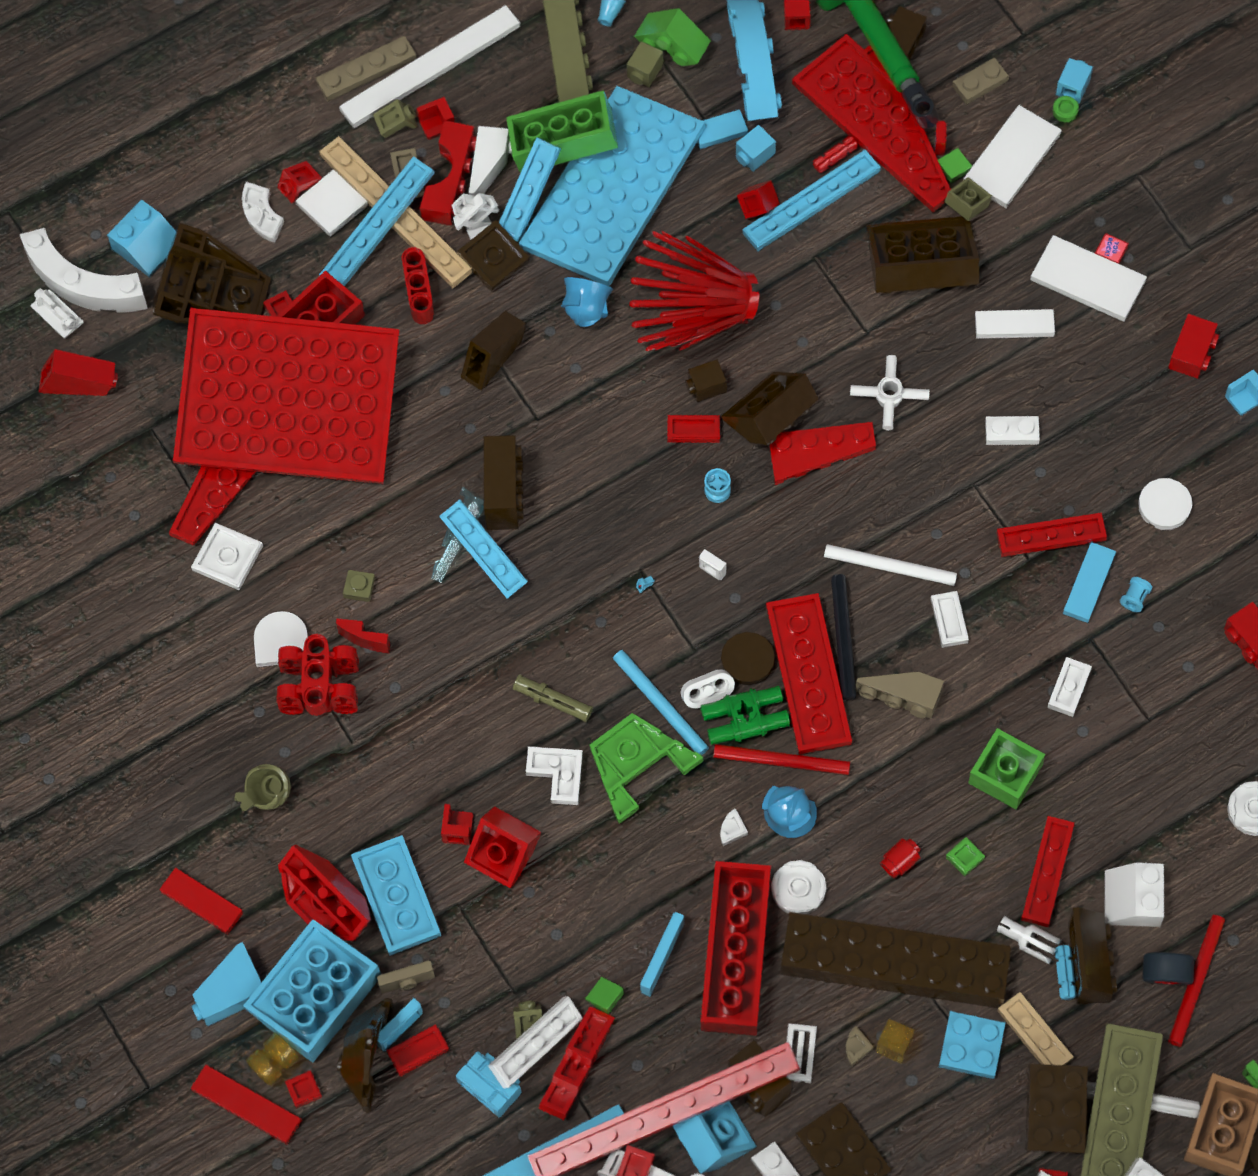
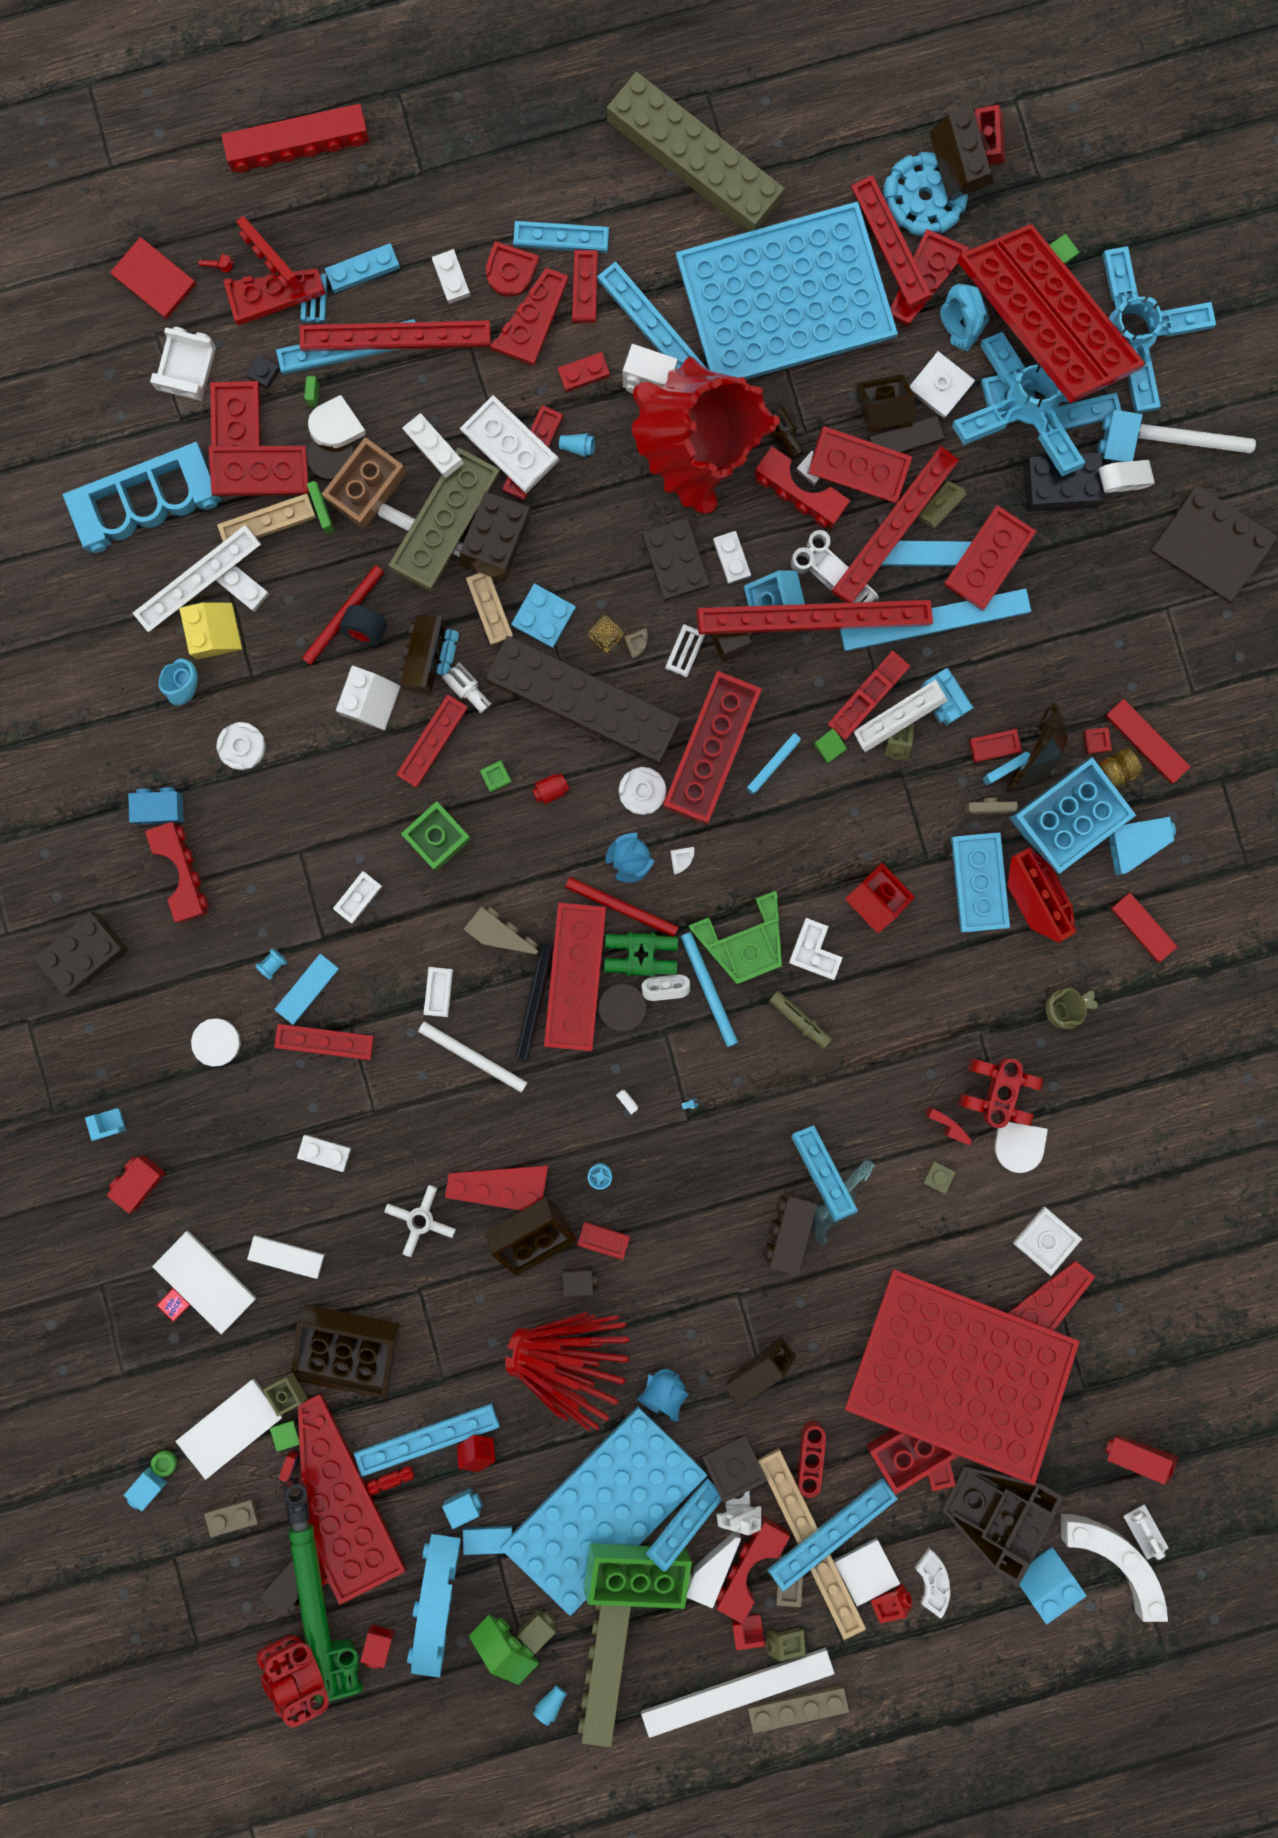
camera: 170 degrees left, 20 degrees up
(456, 826) = (912, 929): red panel -> none

